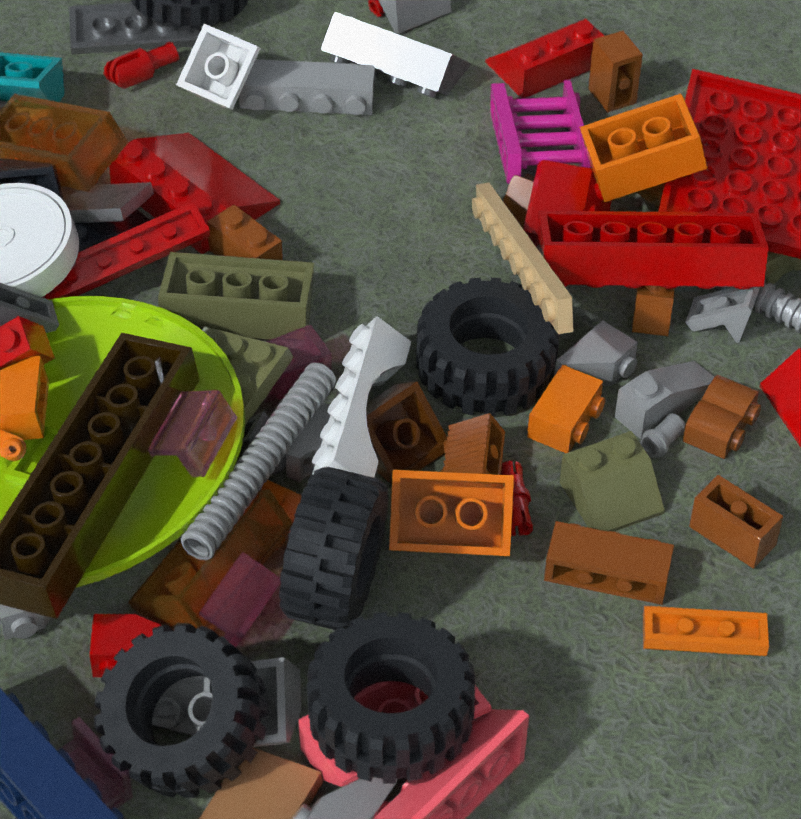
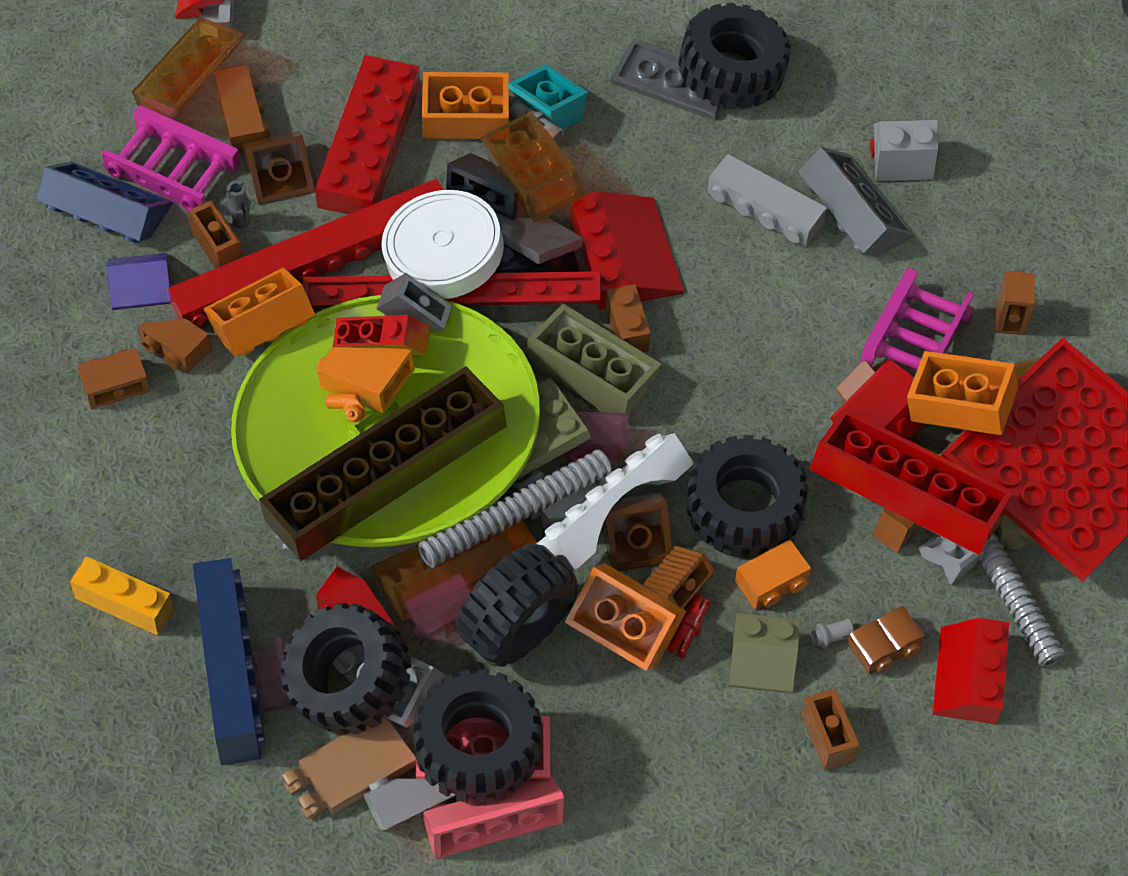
camera: 30 degrees right, 10 degrees up
(139, 65) = (651, 120): red arm -> none
(195, 430) = (473, 467): clear pink panel -> none
(218, 67) = (700, 154): white slope -> none
(524, 258) = (807, 443): tan plate -> none
(547, 59) = (975, 260): red slope -> none
(602, 354) = (828, 545): light grey slope -> none
(608, 562) = (719, 711): dark orange brick -> none
(660, 392) = (856, 599): light grey slope -> none
(705, 631) = (752, 799): orange plate -> none

